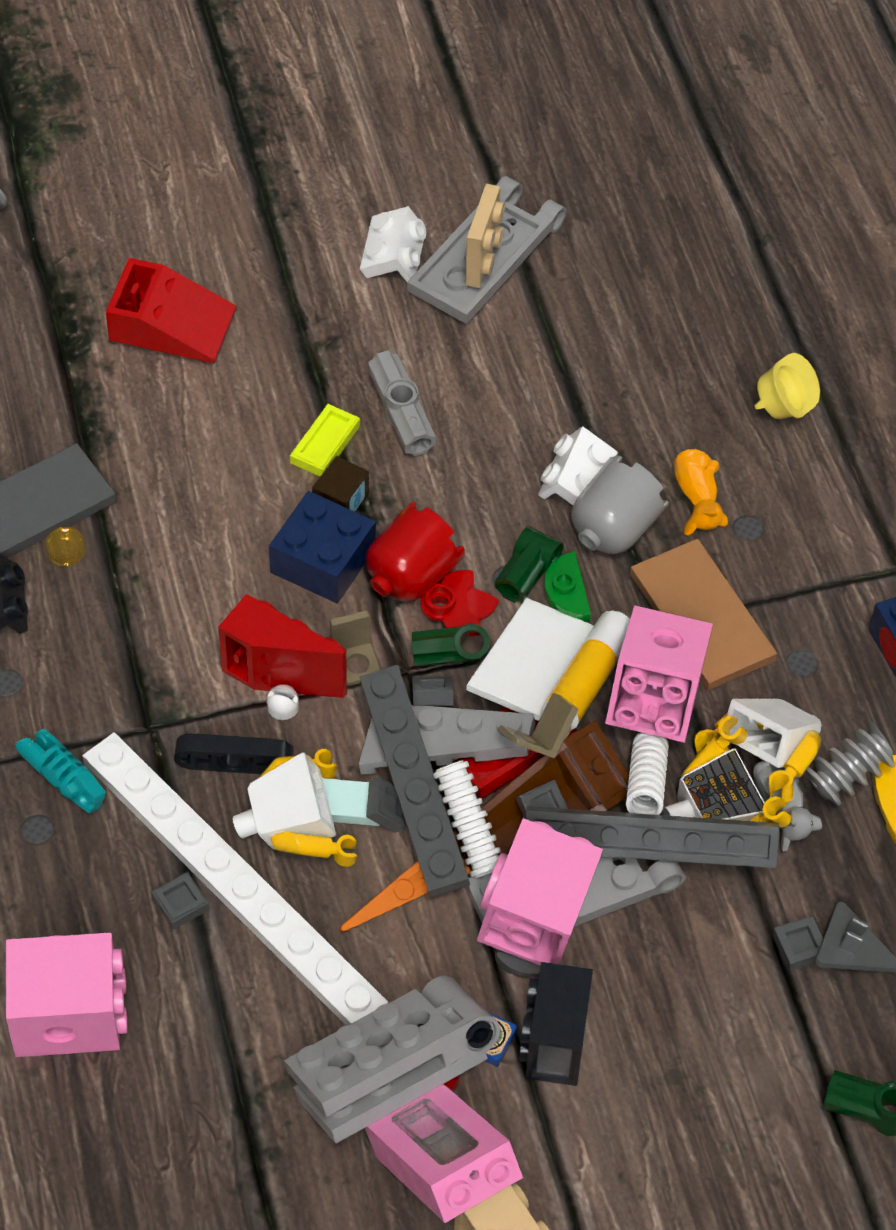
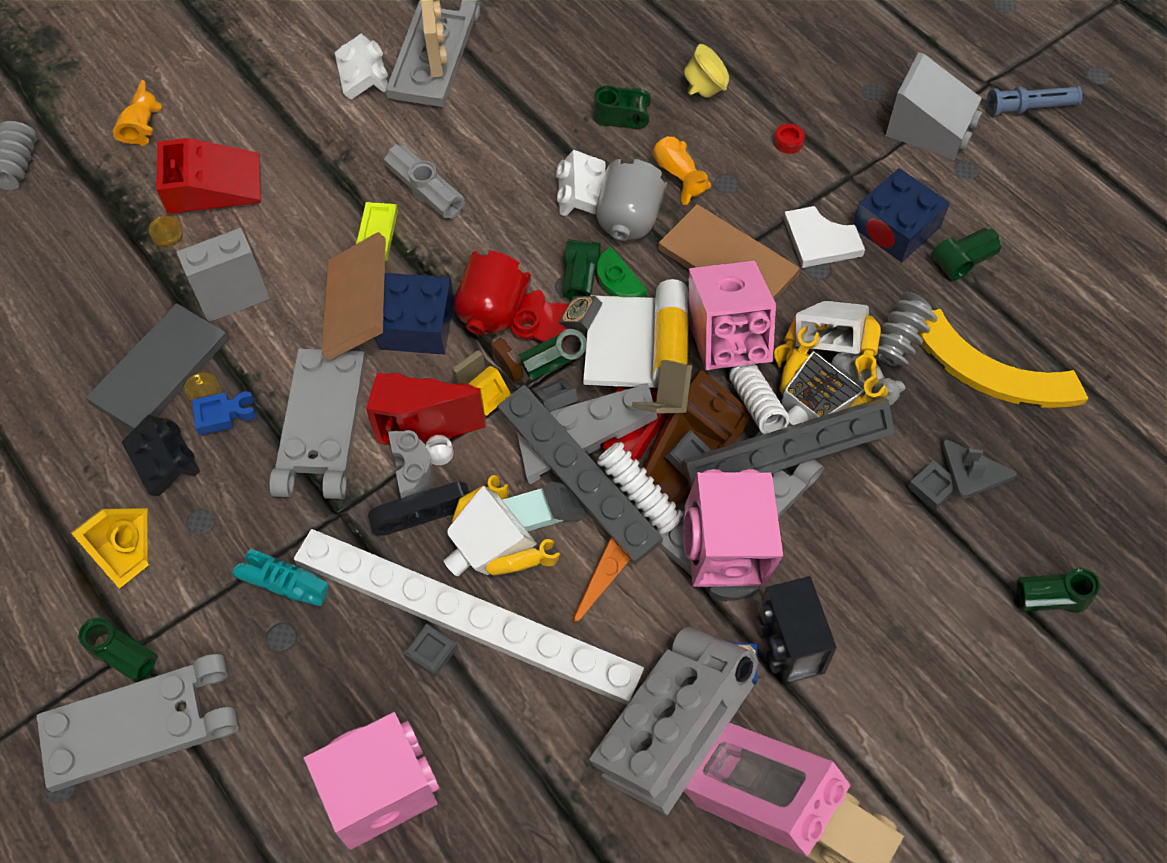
camera: 20 degrees left, 5 degrees up
(71, 574) = (217, 411): none -> blue plate
(99, 359) = (165, 231): none -> clear yellow tile
(113, 223) = (133, 121): none -> light orange animal
(137, 431) = (223, 274): none -> light grey slope
(173, 624) = (320, 421): none -> light grey hinge
(247, 704) = (412, 463): none -> light grey cylinder
(265, 504) = (354, 296): none -> medium nougat tile
(343, 484) = (408, 257): dark brown brick -> none
(362, 656) = (492, 388): none -> yellow tile
(395, 629) = (501, 358): none -> reddish brown tile
(503, 612) = (581, 312): none -> tile
(666, 395) = (618, 106): none -> dark green piece
(820, 631) = (819, 240): none -> white tile
(848, 501) = (789, 138): none -> red tile

